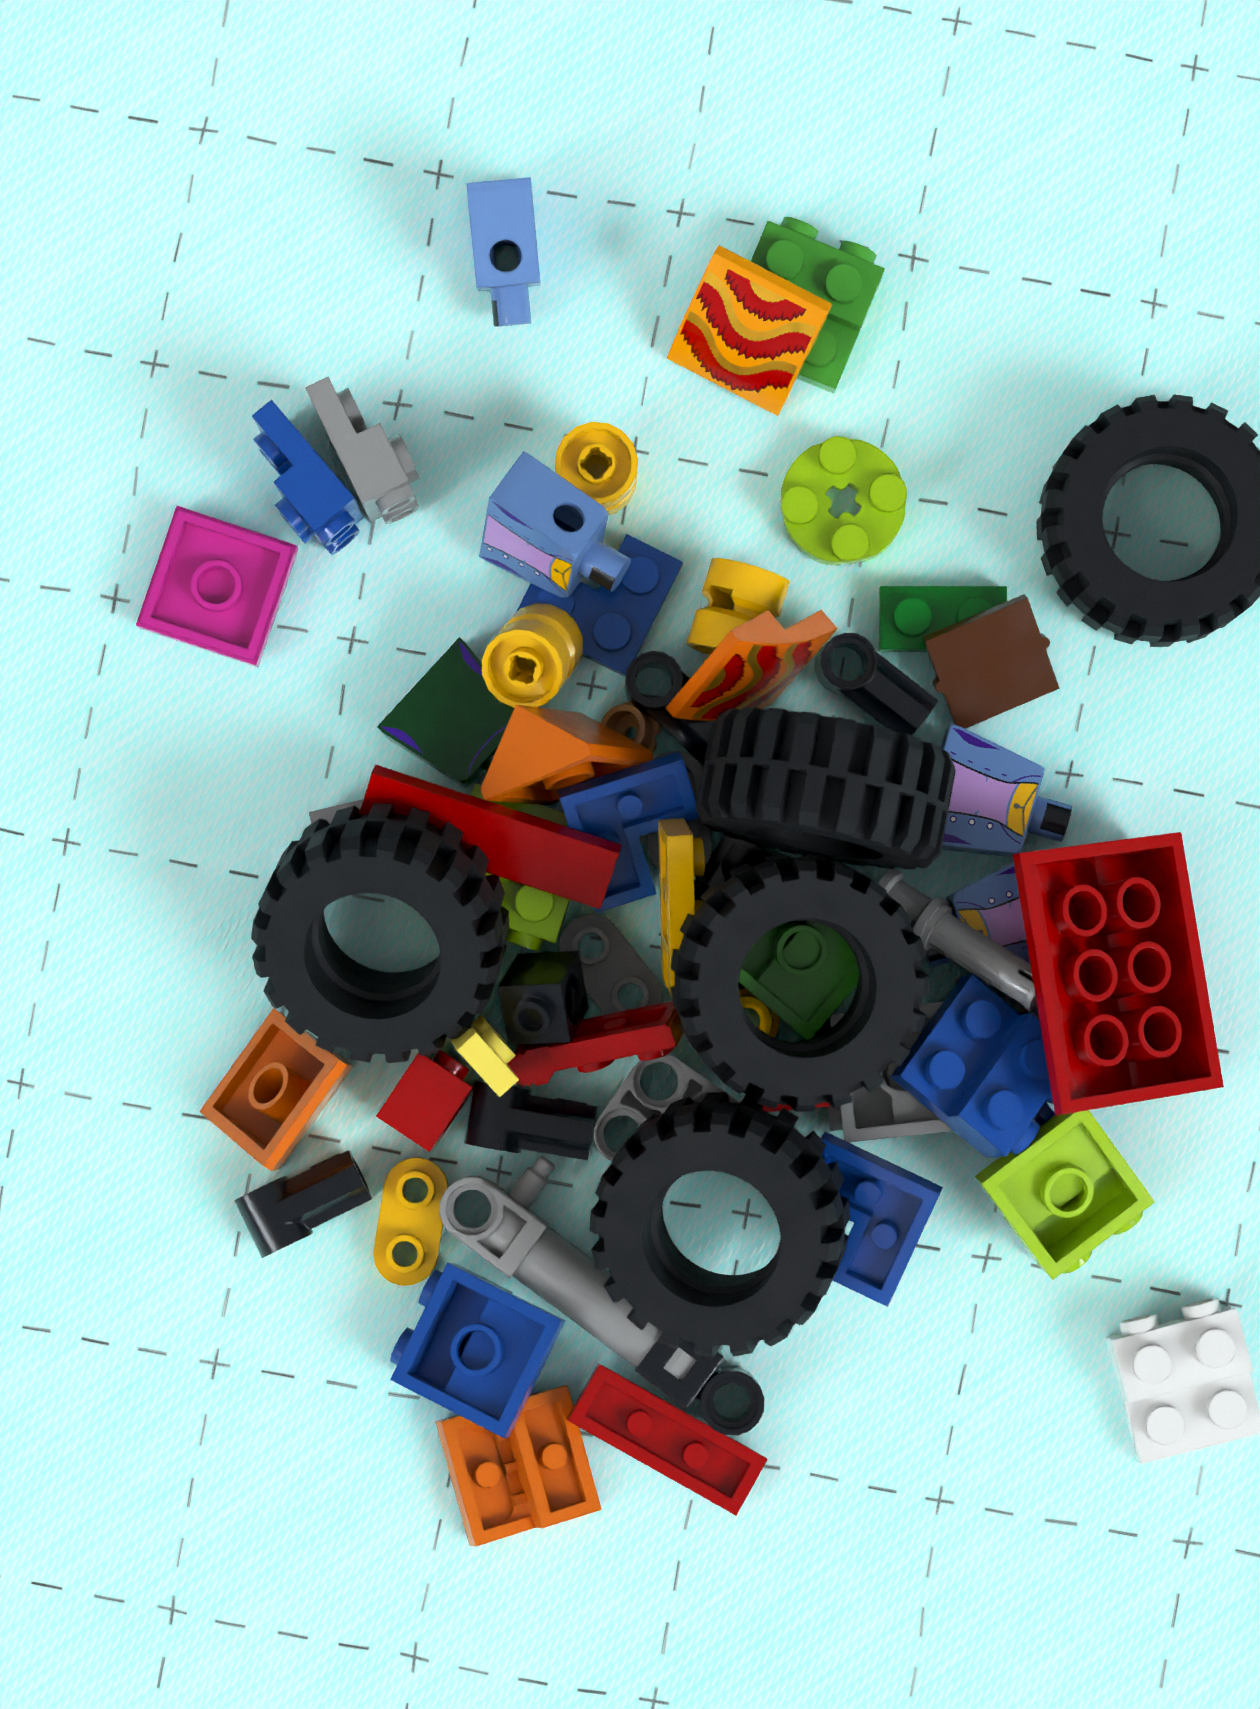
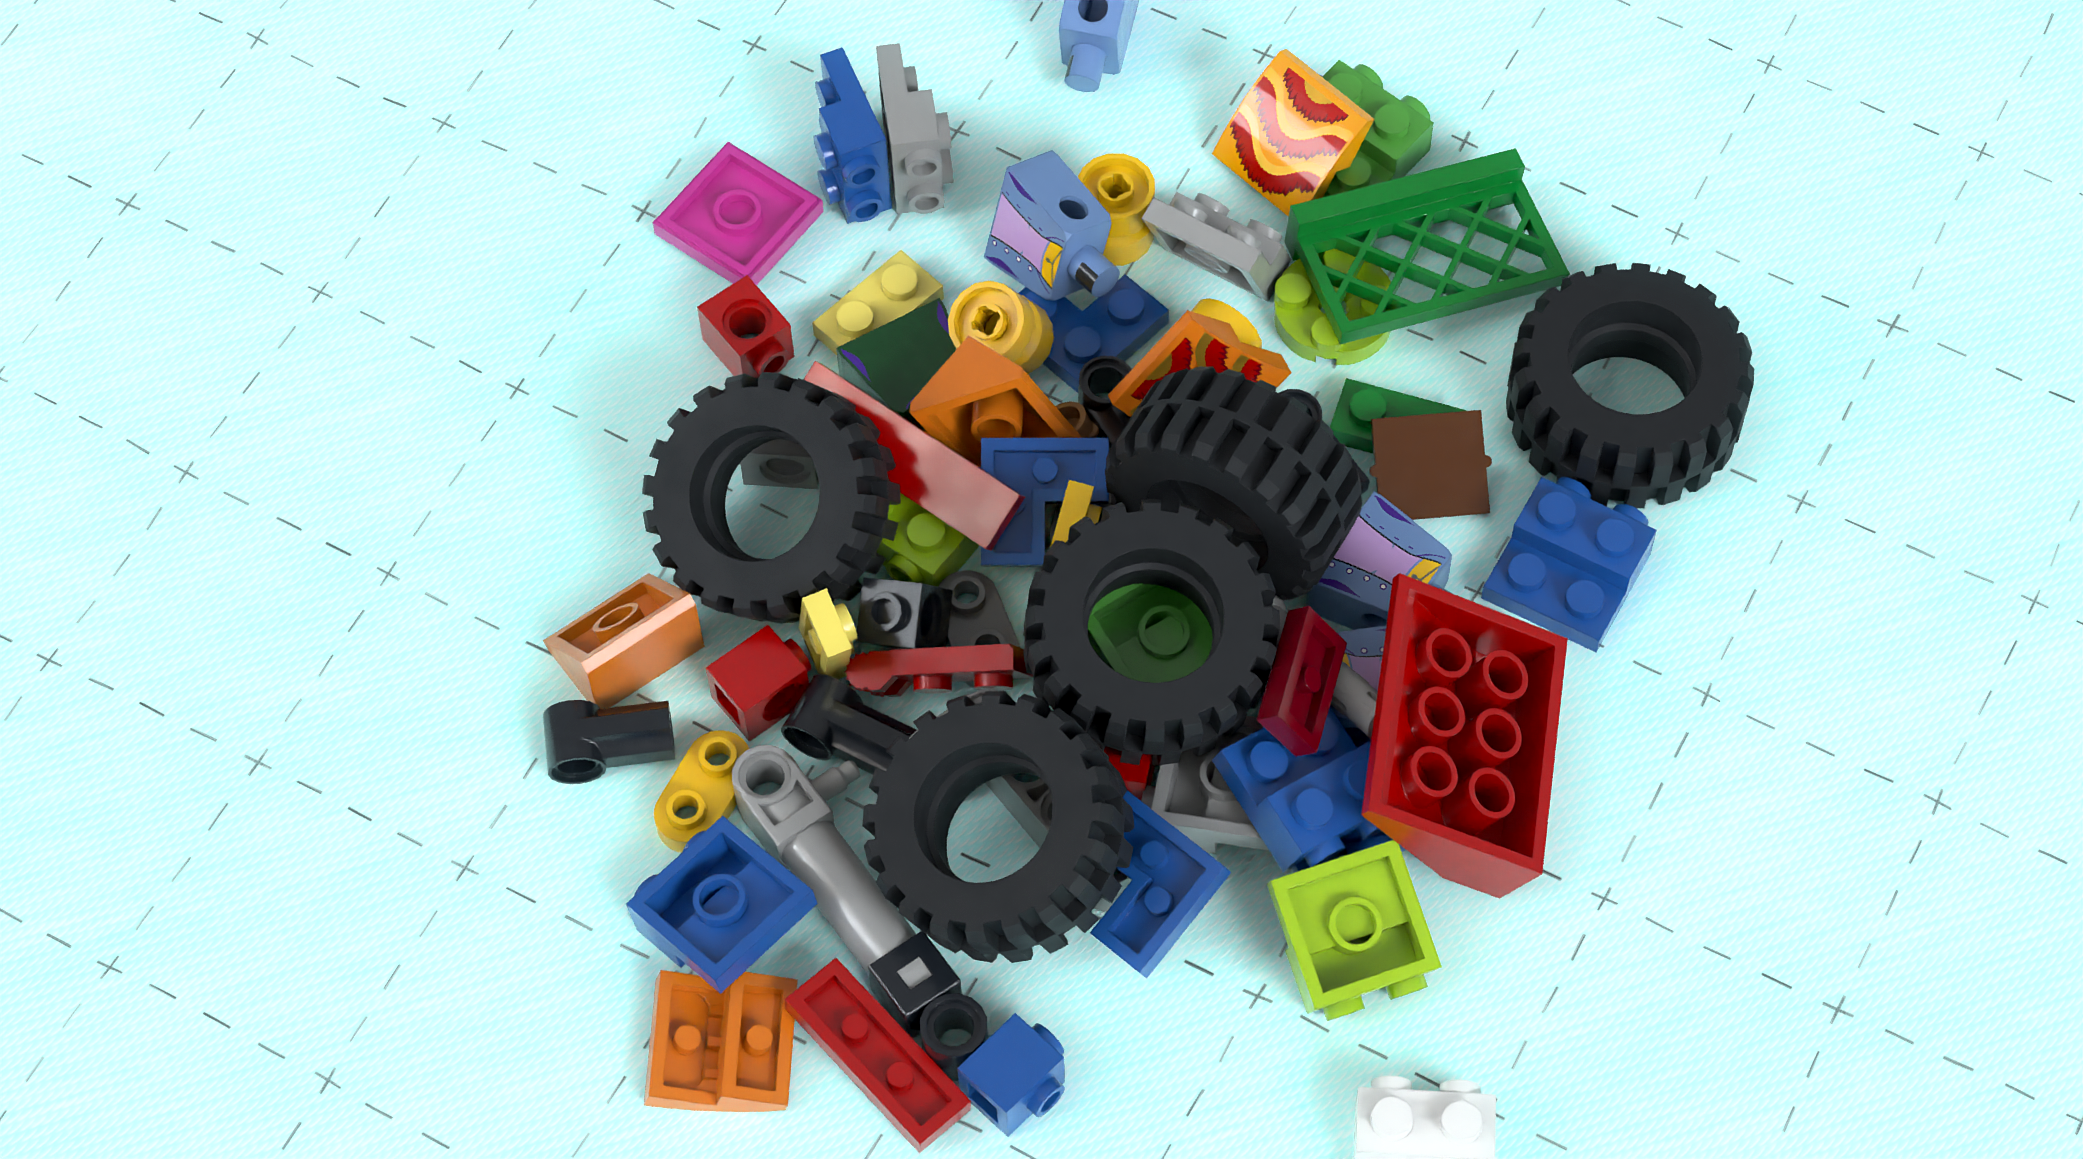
camera: 20 degrees right, 25 degrees down
(253, 707) = (744, 311): none -> red brick
(393, 645) = (880, 298): none -> light yellow plate
(714, 482) = (1211, 240): none -> light grey plate
(799, 1418) = (1014, 1074): none -> blue brick
(885, 377) = (1408, 210): none -> green fence
(958, 988) = (1302, 681): none -> dark red plate
(1152, 723) = (1570, 562): none -> blue plate

